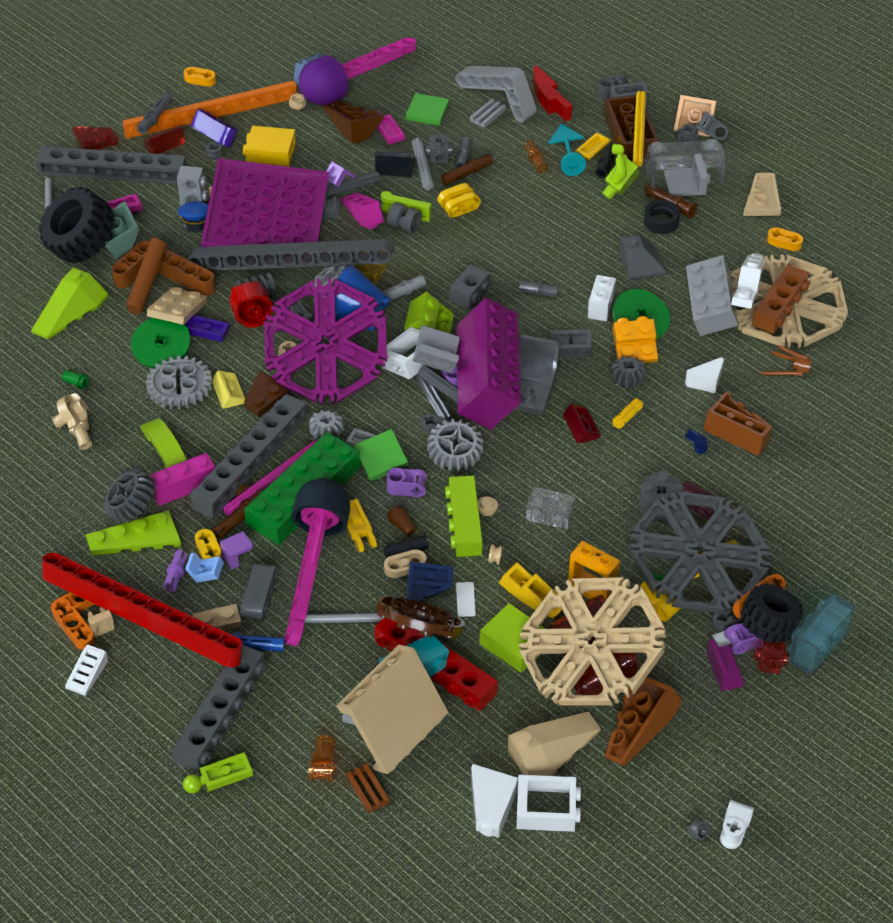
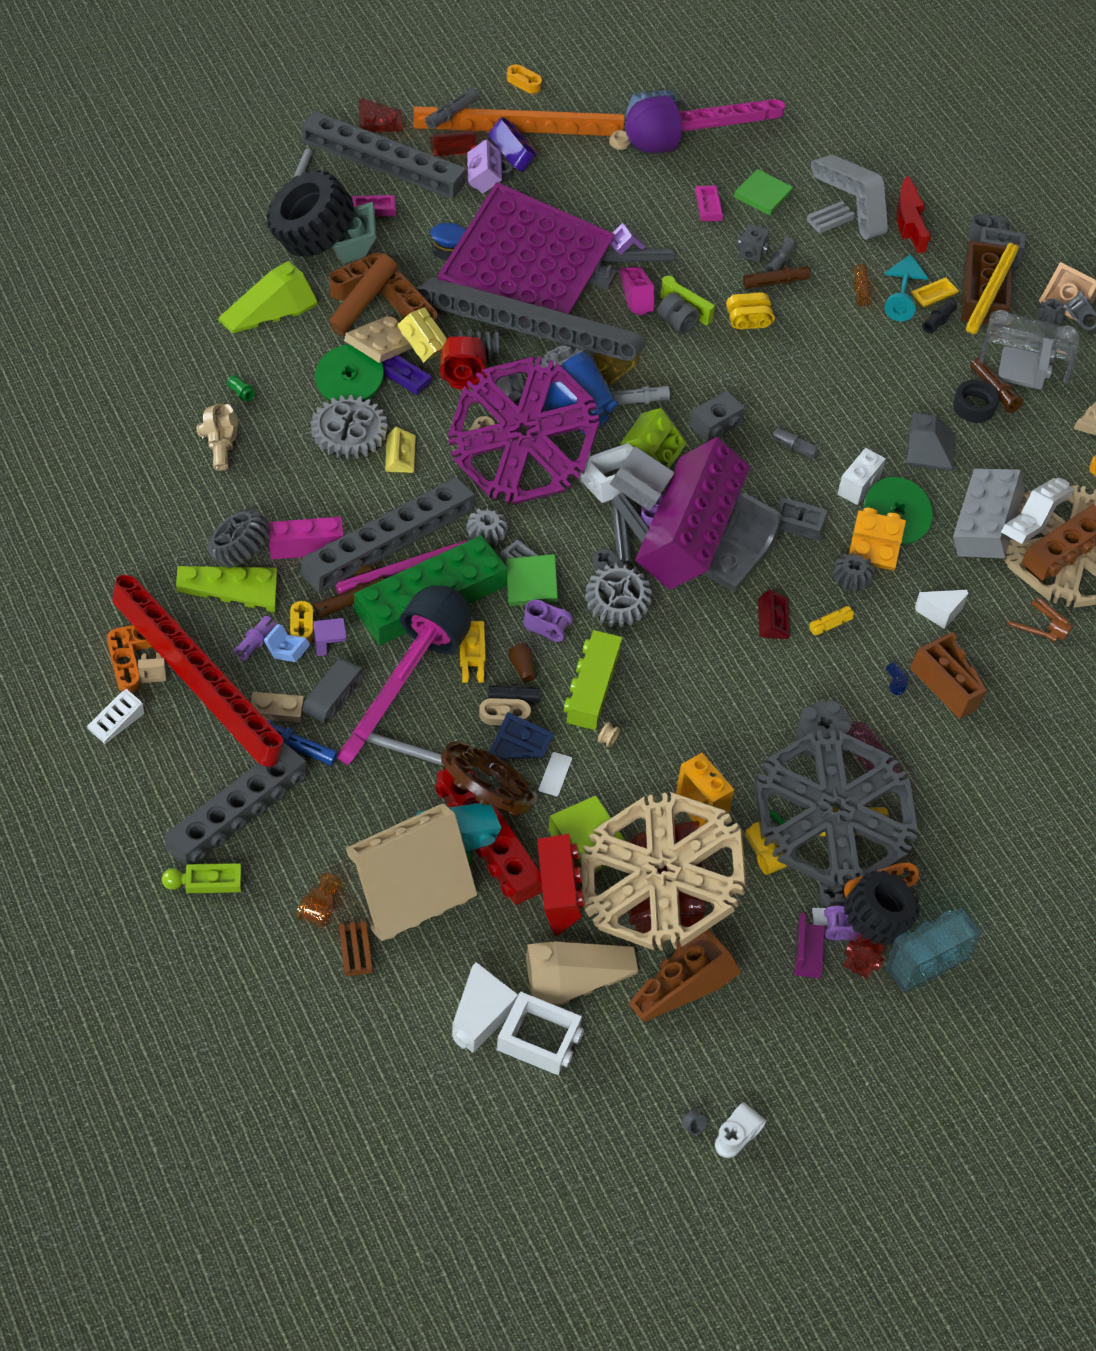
camera: 15 degrees right, 5 degrees up
(164, 442) = (304, 490): lime slope -> none
(192, 185) = (457, 204): light grey brick -> none
(199, 150) = (484, 166): none -> lavender brick
(209, 292) = (423, 334): none -> light yellow brick
(263, 394) = (435, 469): reddish brown wing -> none
(270, 145) = (566, 183): yellow brick -> none
(353, 121) = (672, 182): reddish brown wedge -> none
(394, 164) = (695, 246): black slope -> none
(422, 164) = (728, 256): light grey axle -> none
(487, 505) = (625, 676): tan plate -> none
(513, 678) = (560, 881): none -> red slope
(527, 588) = (625, 782): yellow slope -> none
(550, 507) = (706, 703): clear brick -> none
(622, 174) = (949, 337): lime torso -> none

